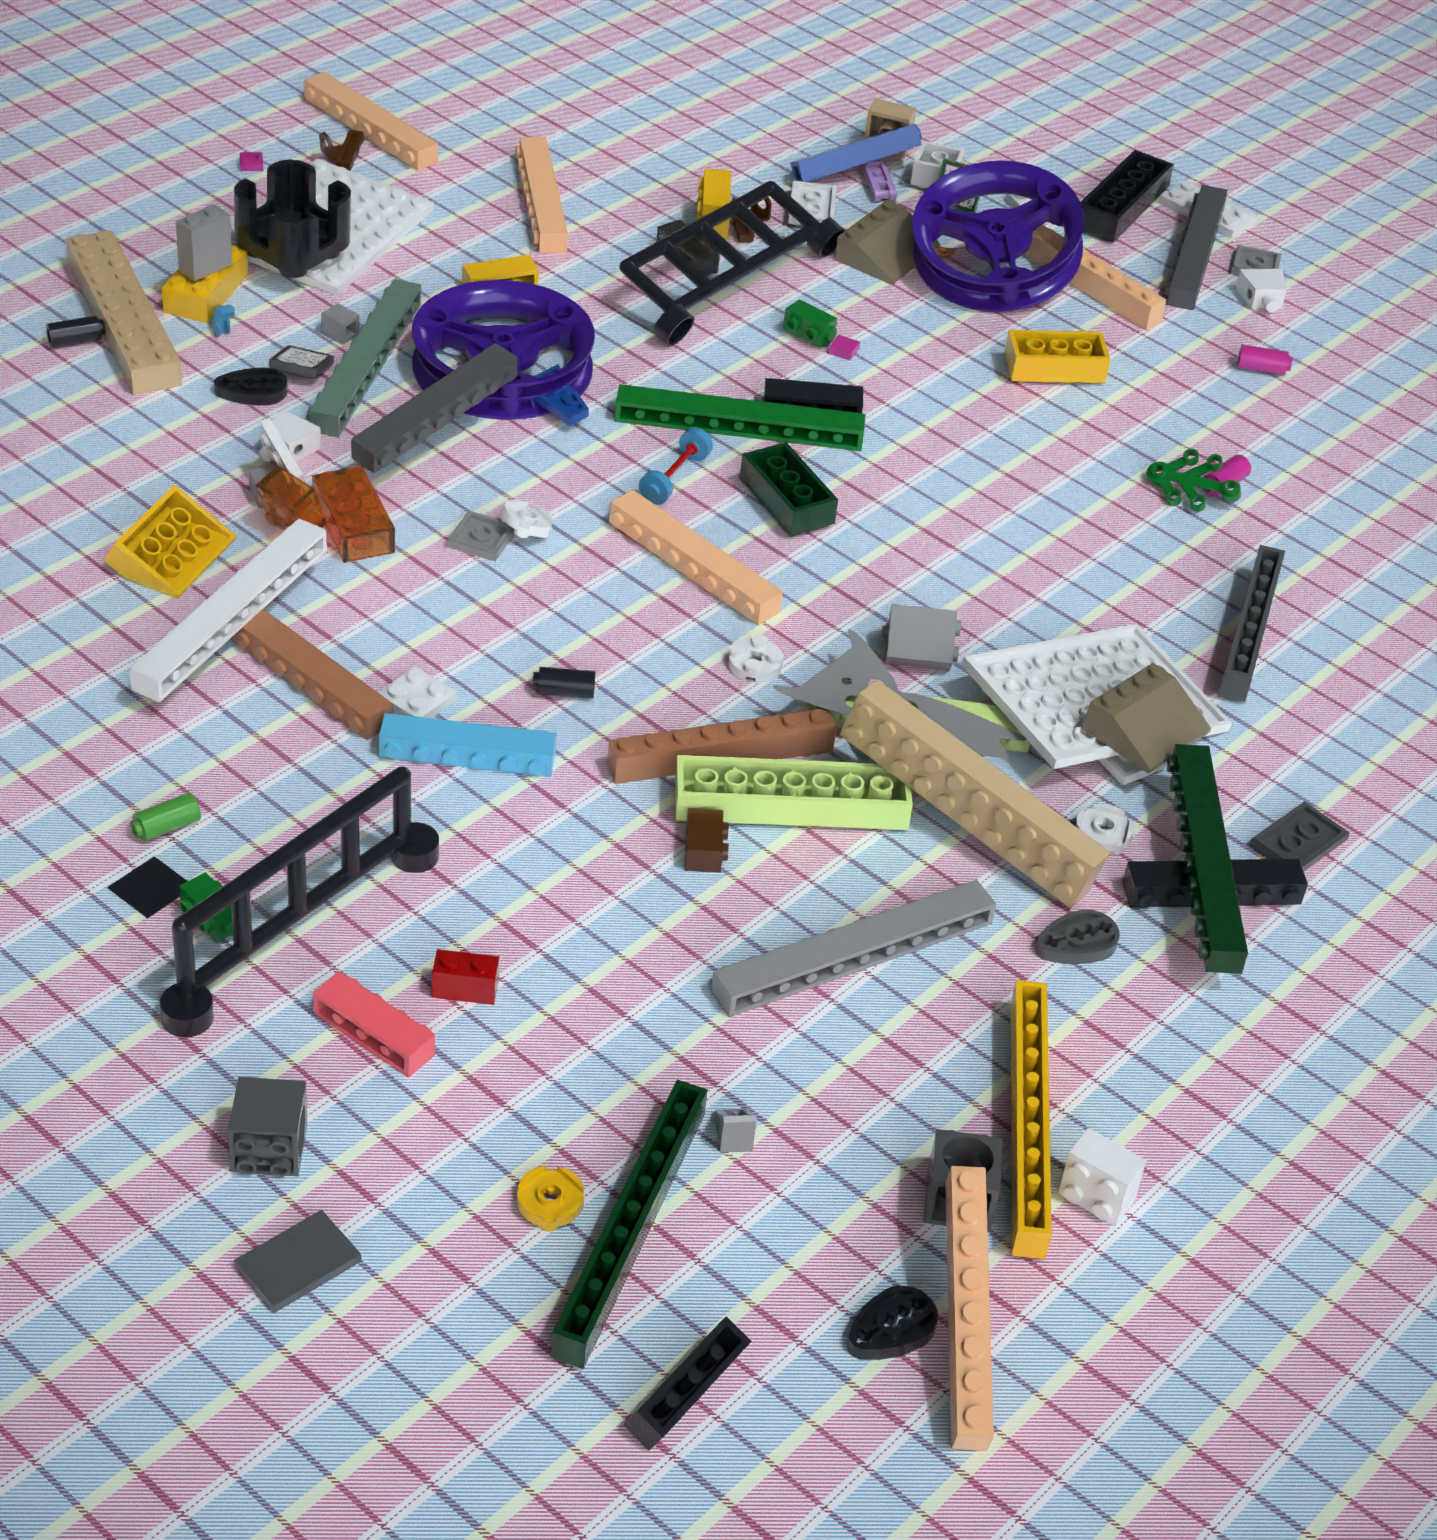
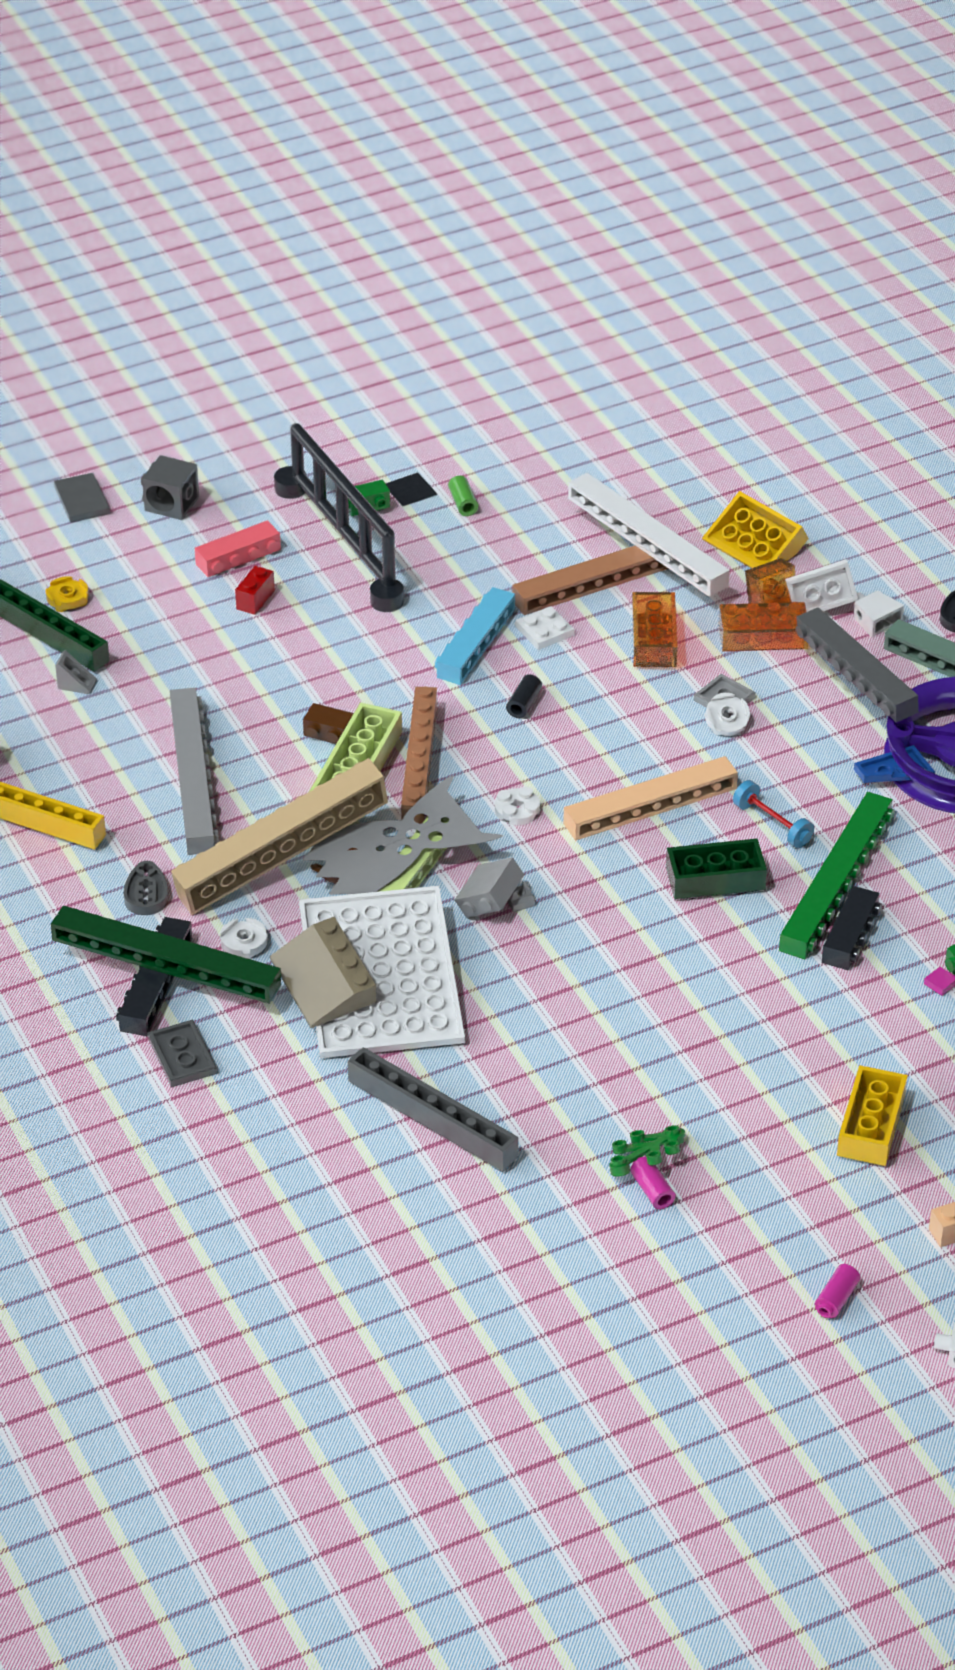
camera: 115 degrees right, 0 degrees up
(400, 591) = (654, 629): none -> clear orange brick

